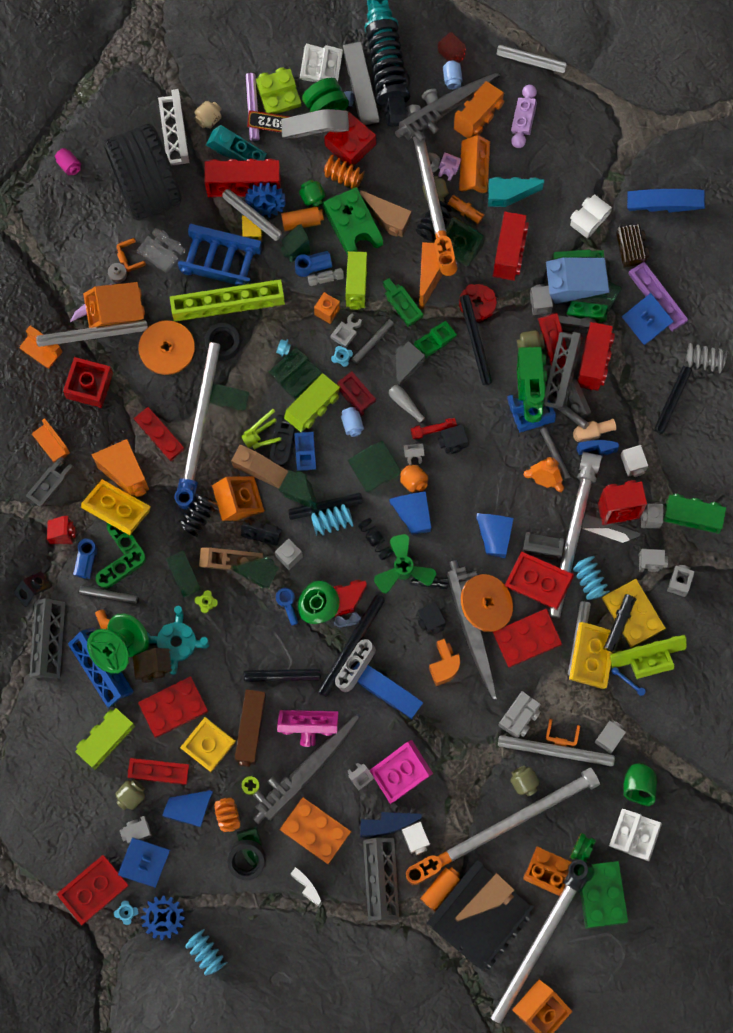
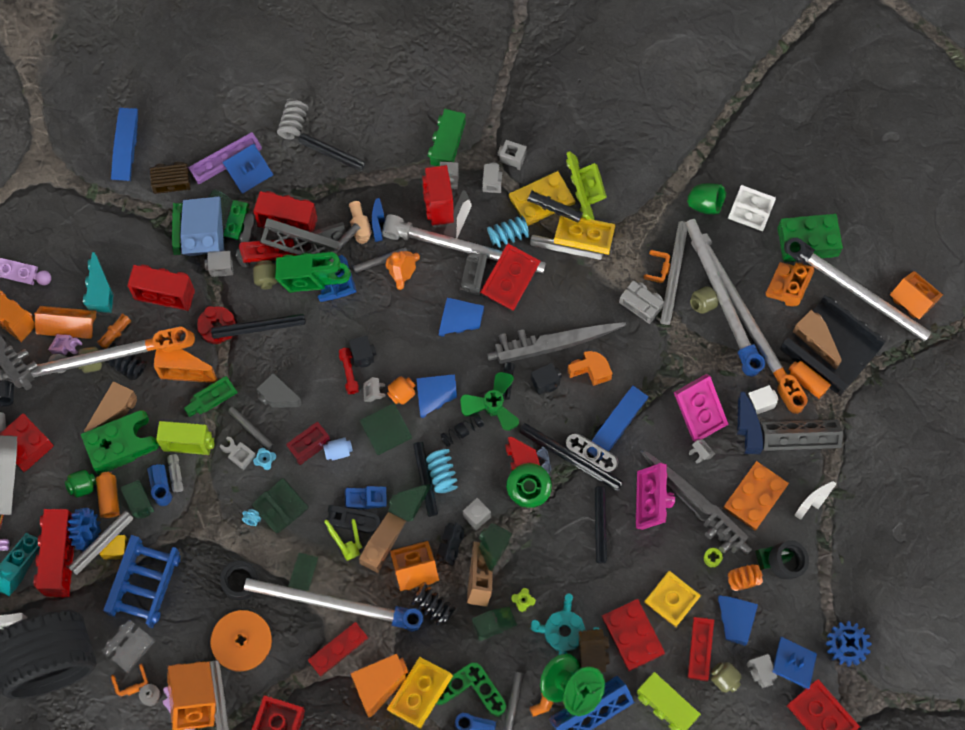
camera: 90 degrees left, 5 degrees down
(126, 907) = (842, 676): medium azure plate -> none
(205, 953) = (881, 600): medium azure piece -> none
(227, 300) = (195, 573): lime brick -> none
(250, 727) = (655, 555): reddish brown brick -> none
(285, 598) = (520, 519): blue plate -> none
(312, 403) = (316, 486): lime brick -> none
(327, 308) = (211, 470): orange brick -> none
(342, 173) = (59, 451): orange piece -> none
(399, 395) = (316, 399): light grey piece -> none
(436, 339) = (252, 366): green slope -> none
(465, 240) = (146, 329): clear green slope -> none
(468, 823) = (747, 352): none -> flat silver piece
(474, 598) = (532, 325): orange piece -> none
(527, 638) = (565, 292): red plate -> none
(582, 848) = (768, 251): green wheel -> none
(590, 215) = (134, 213): white brick -> none
(610, 736) = (661, 223): light grey brick -> none
(634, 461) = (393, 187): white brick -> none
(640, 691) = (616, 197): blue hinge -> none

